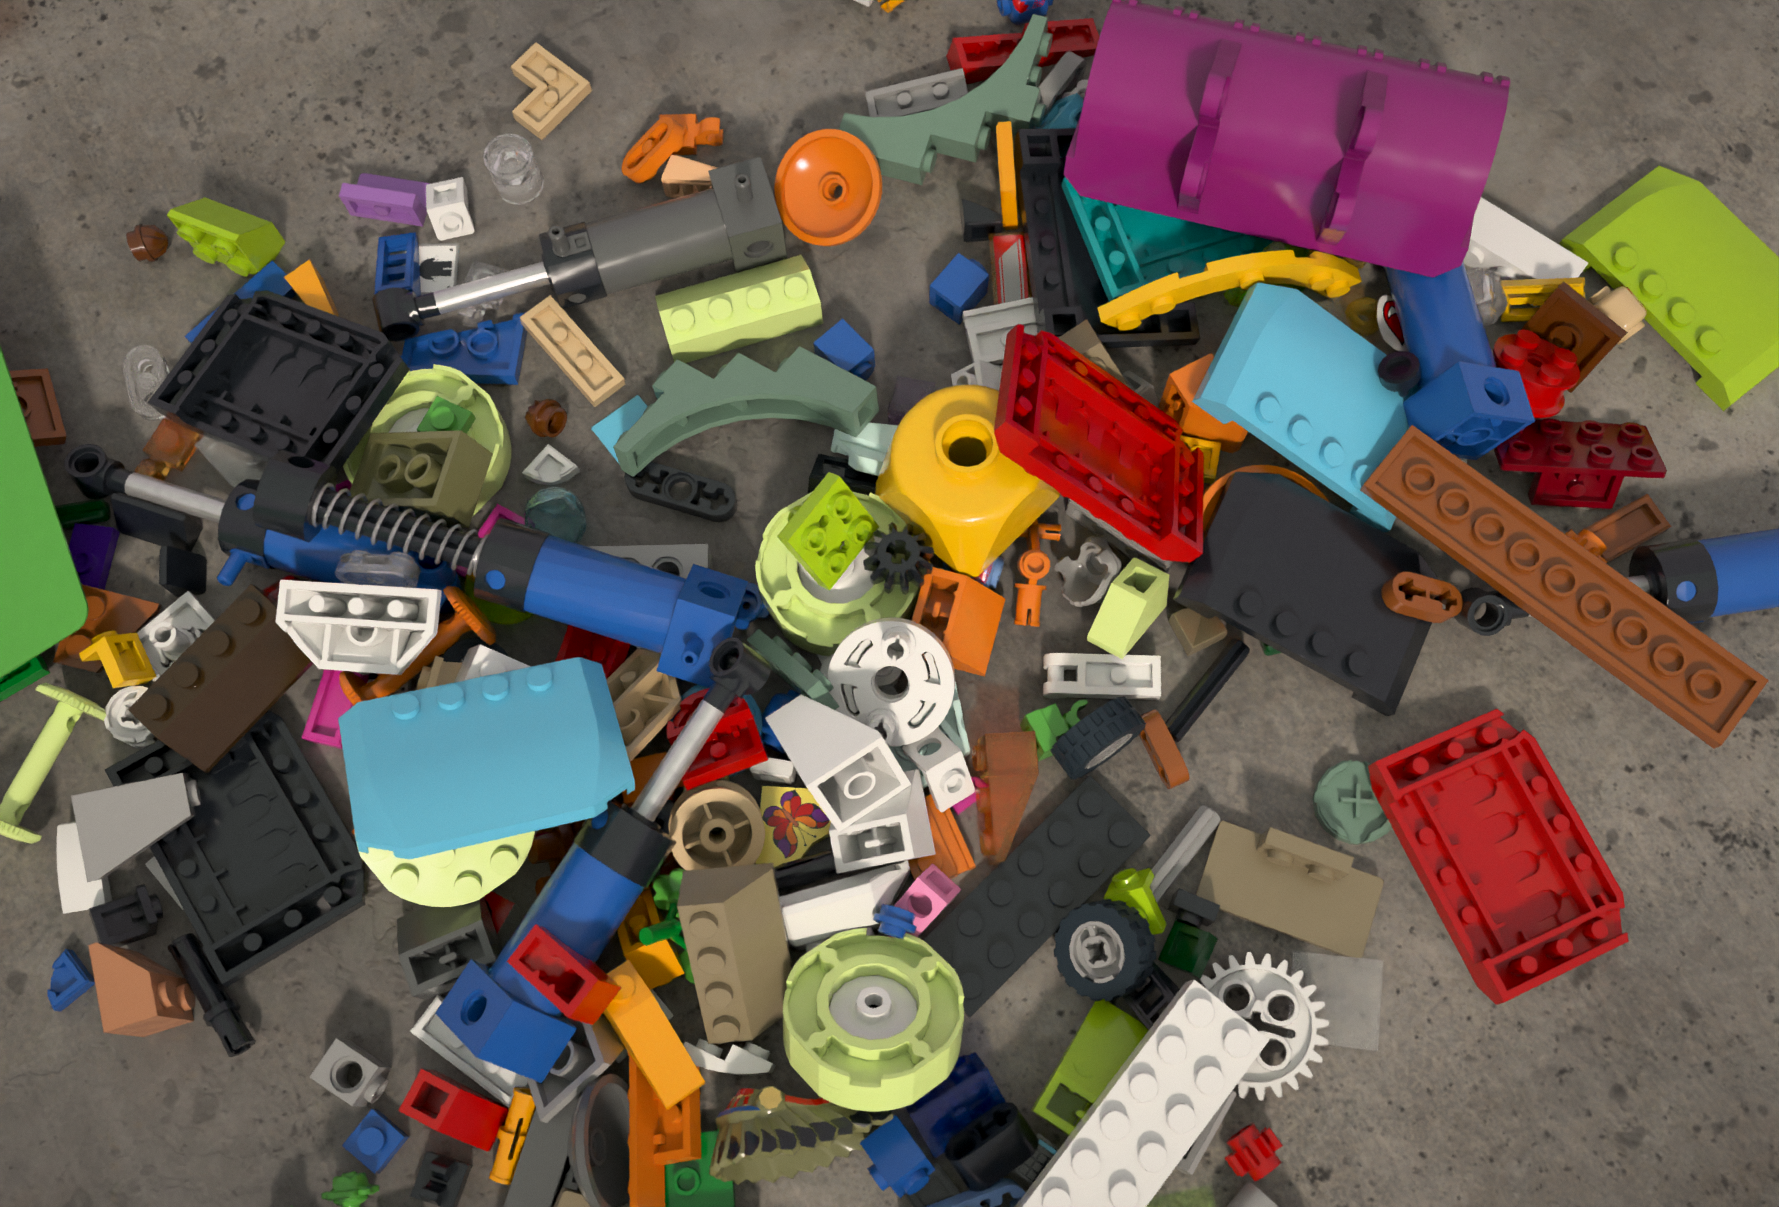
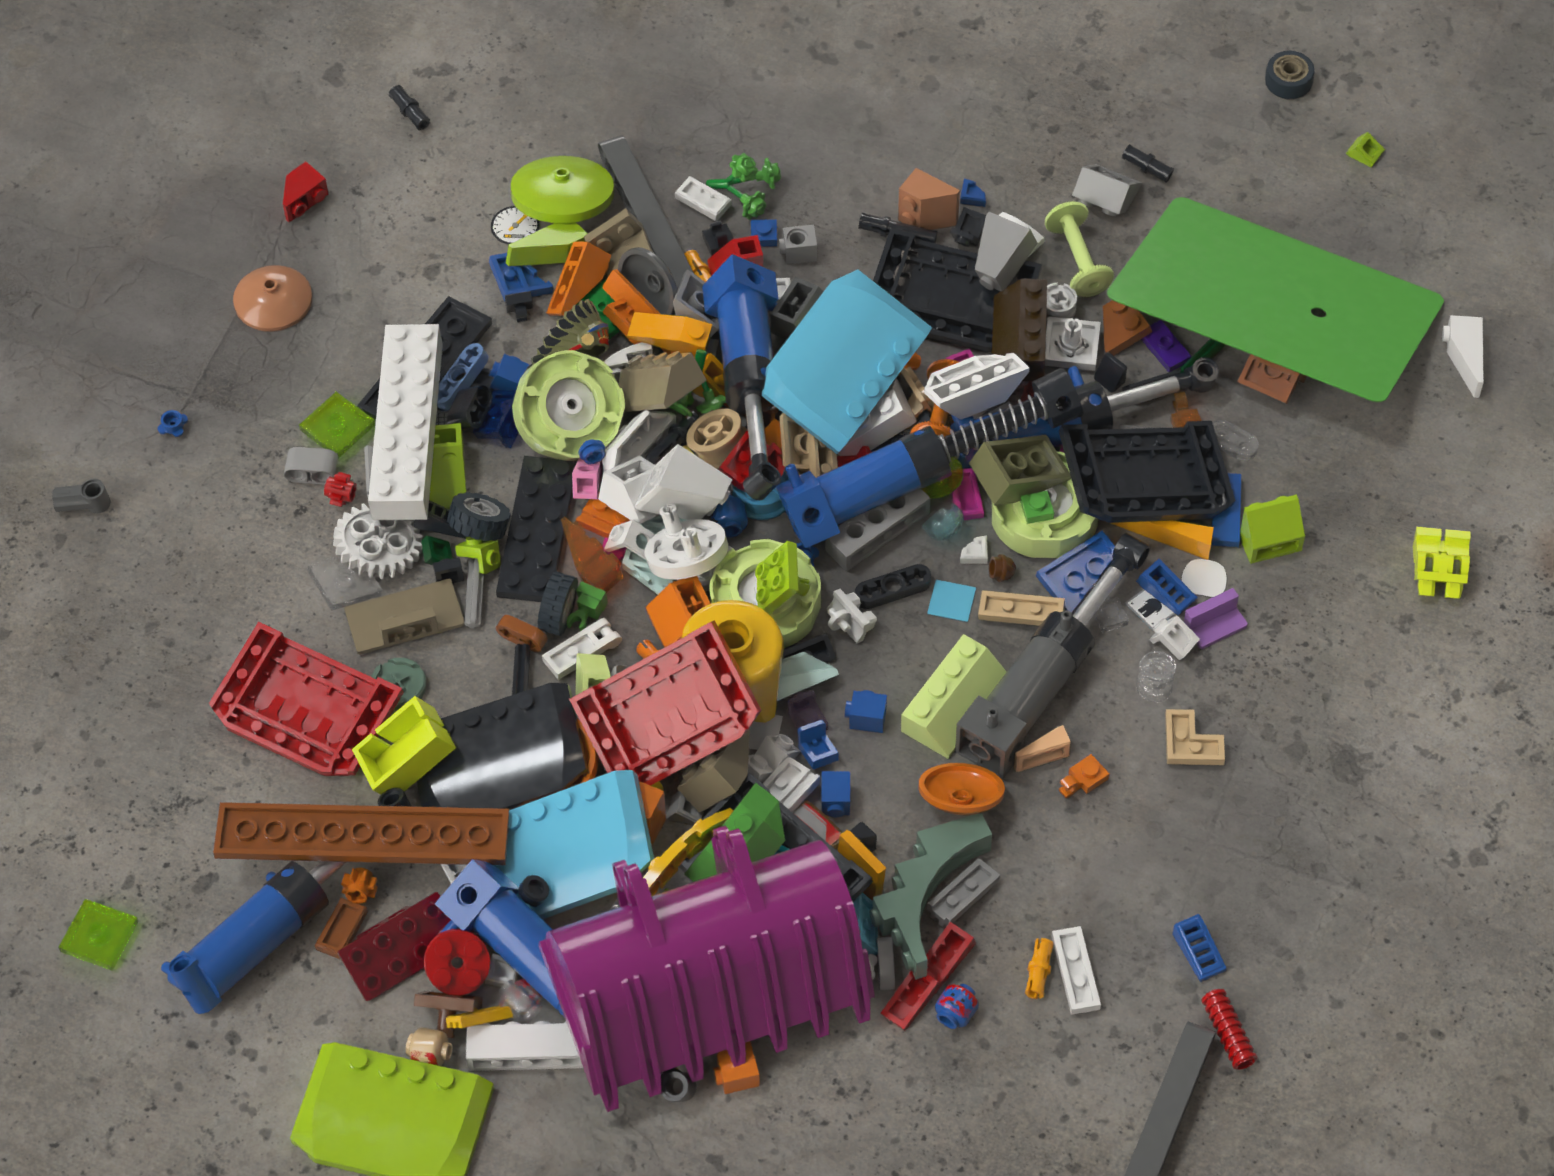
camera: 140 degrees right, 15 degrees down
(107, 82) = (1441, 560): none -> neon yellow hips
(121, 657) = (1088, 309): yellow bracket -> none
(147, 242) = (1318, 502): reddish brown plate -> none
(346, 259) = (1205, 577): none -> white sticker
(378, 570) = (986, 404): clear plate -> none
(564, 976) = (719, 305): red arch -> none
(653, 150) = (1087, 742): orange plate -> none
(745, 390) = (903, 651): sand green arch -> none
(768, 483) = (847, 616): none -> white hips
(793, 669) = (740, 520): sand green plate -> none
(908, 570) = (732, 591): black gear -> none
(934, 353) = (816, 745): none -> blue bracket
(1127, 252) = (760, 824): none -> bright green wedge
(1421, 603) = (433, 787): dark orange beam -> none
(1433, 663) = (416, 747): none -> neon yellow piece

